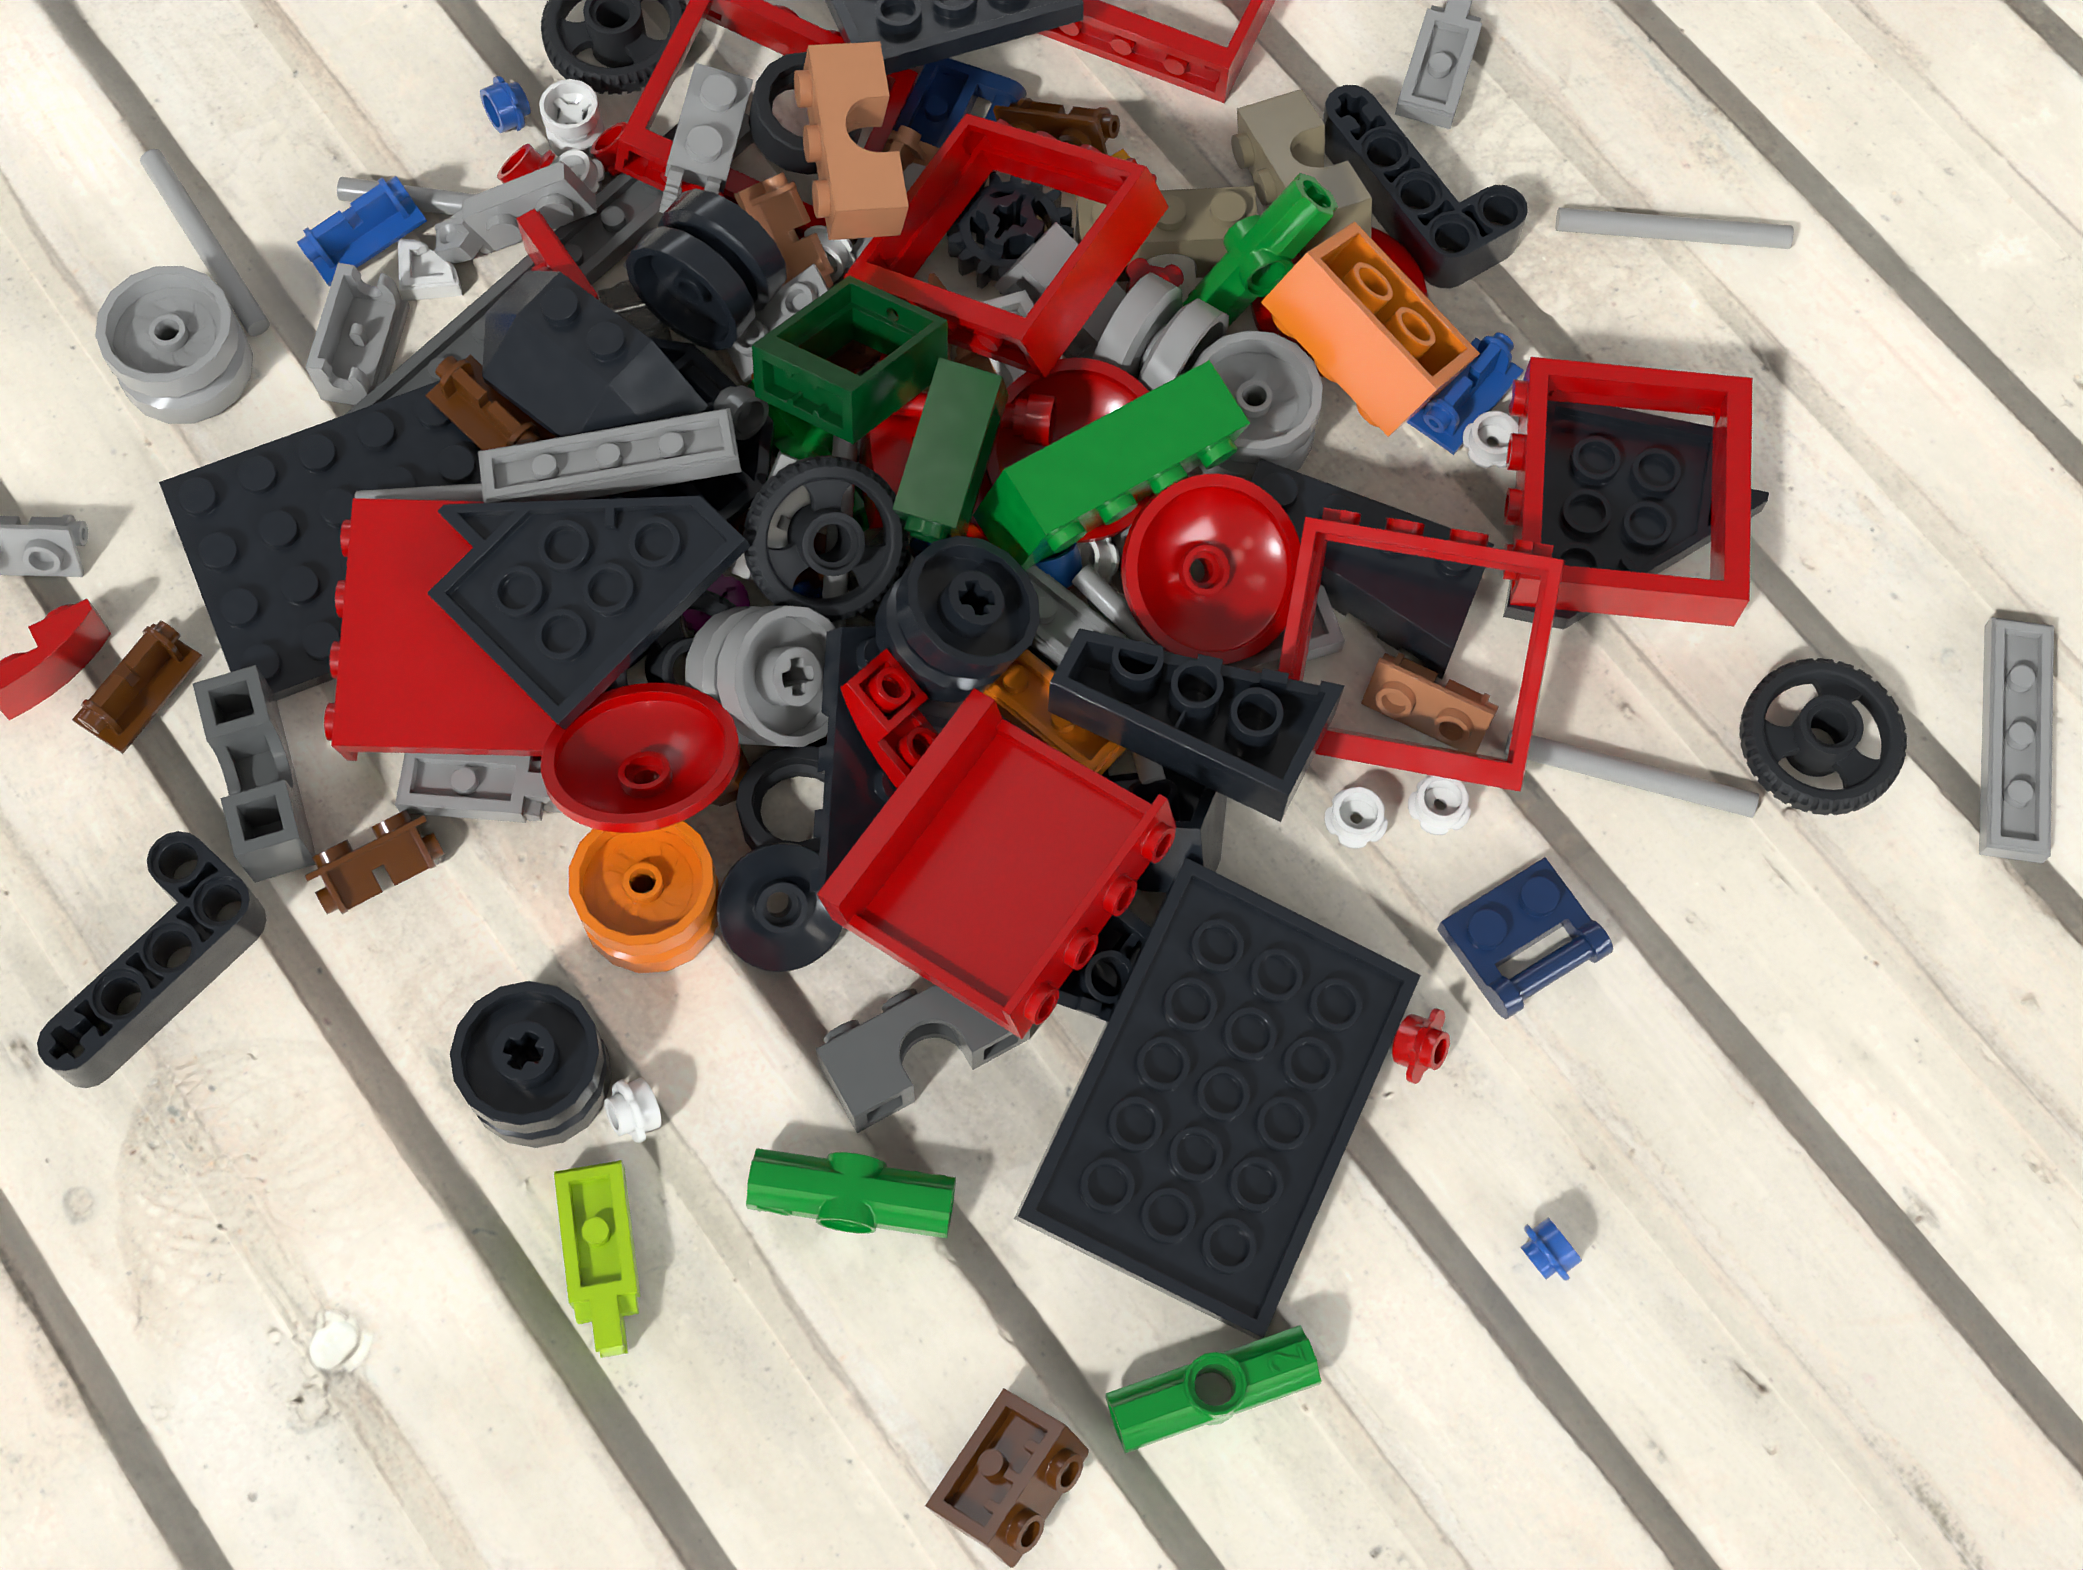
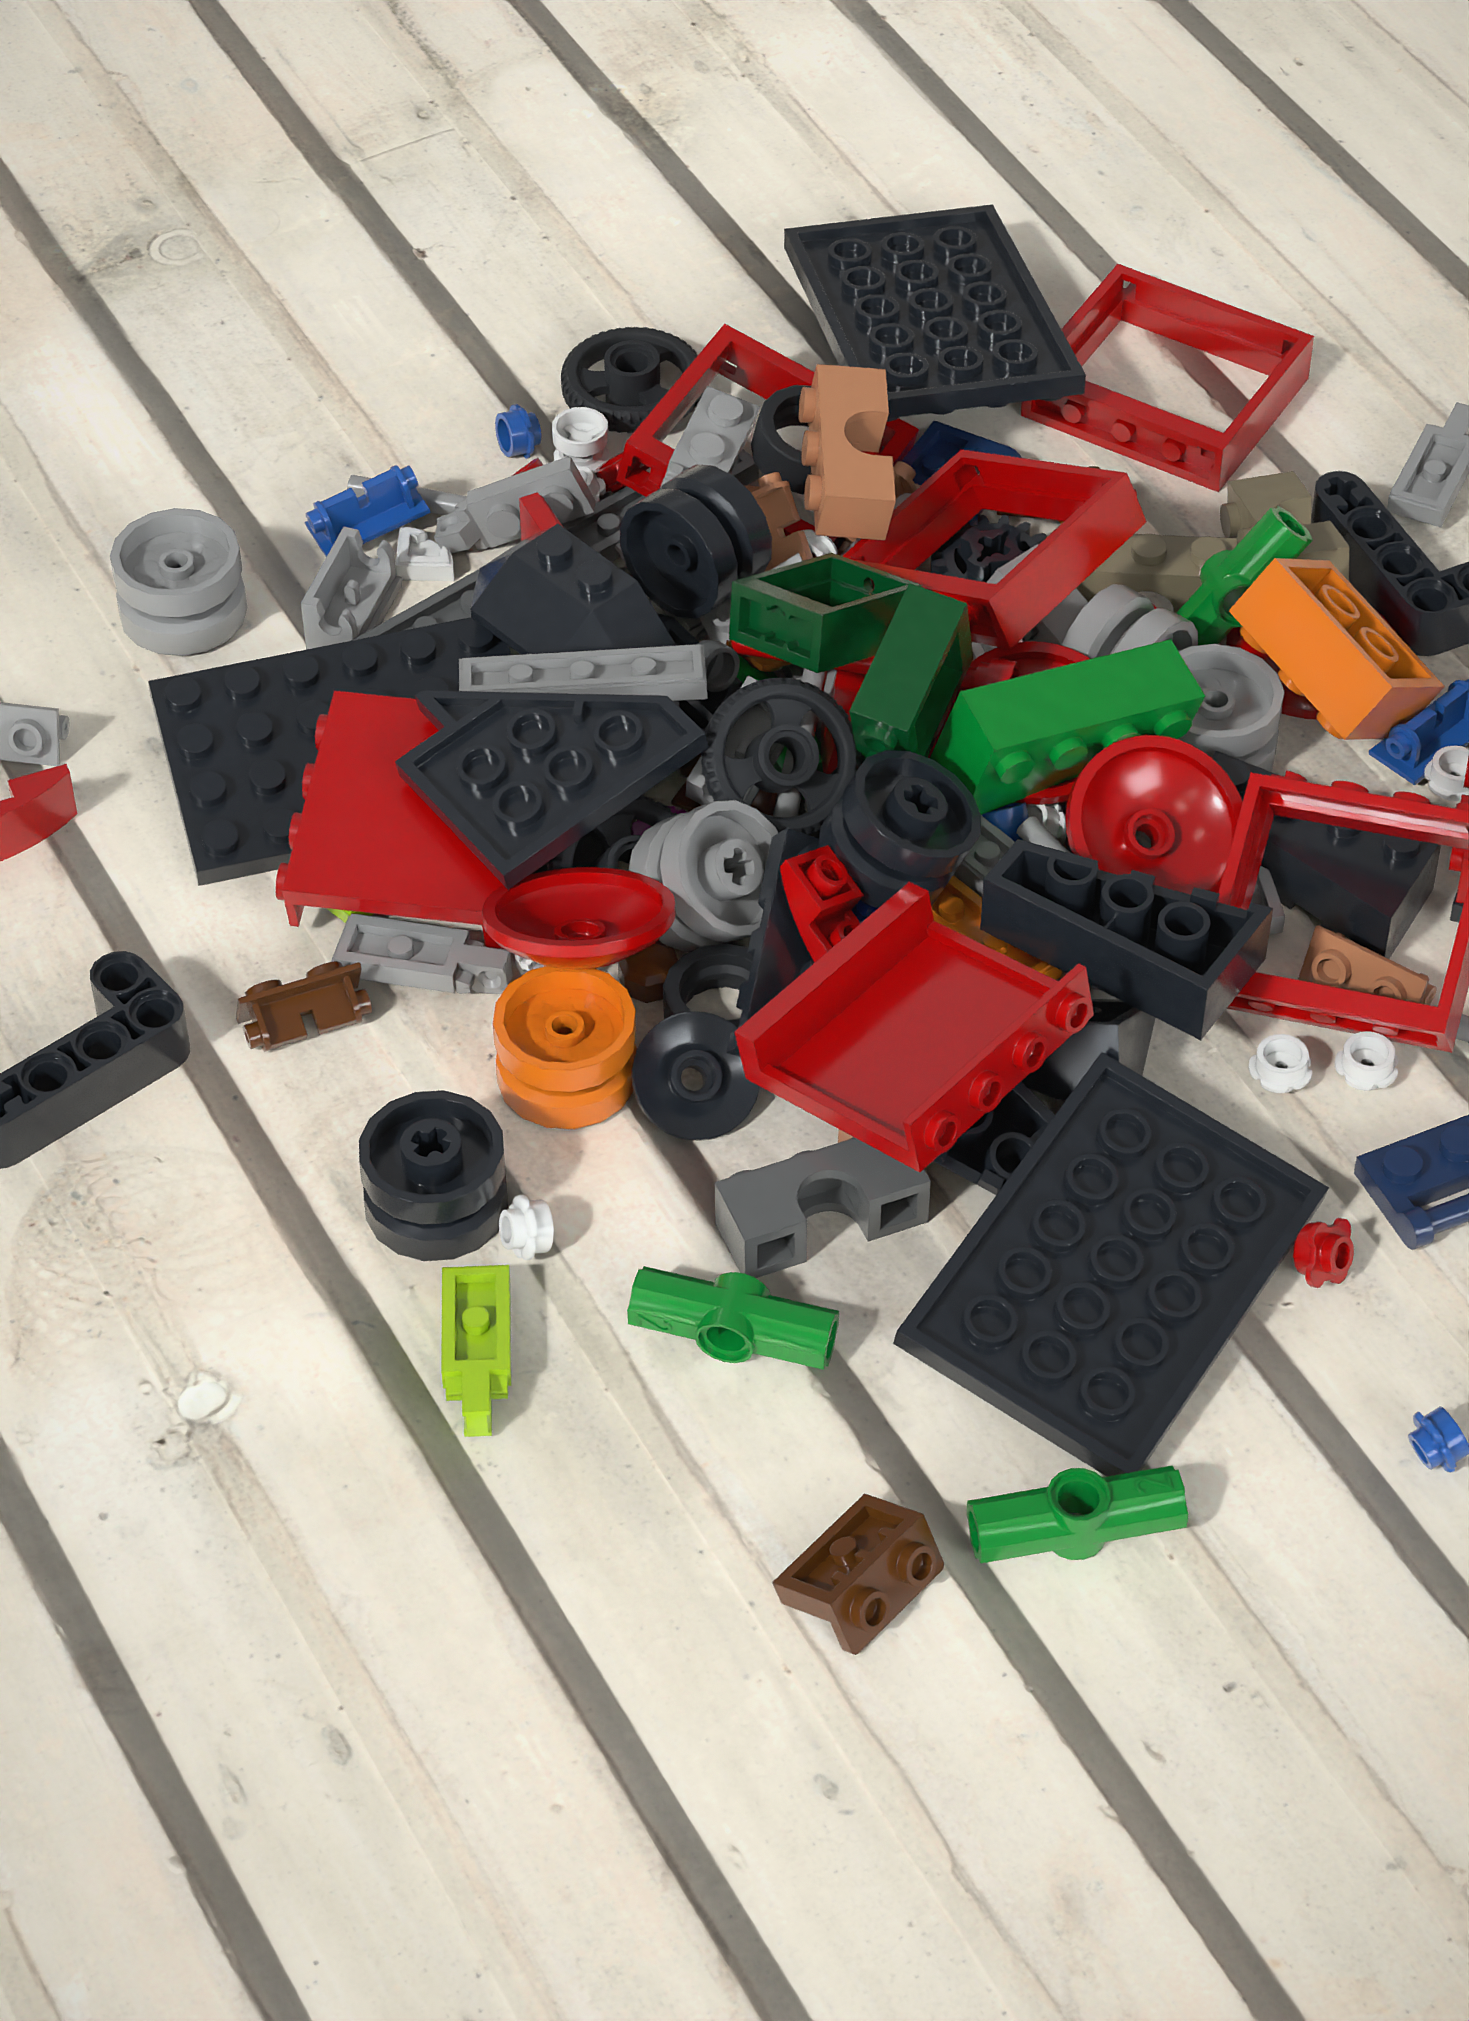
camera: 10 degrees right, 20 degrees down
(138, 687) = (98, 851): reddish brown hinge -> none
(204, 242) = (207, 501): light grey bar -> none
(264, 798) = (202, 918): dark grey arch -> none
(479, 409) = (454, 633): reddish brown hinge -> none

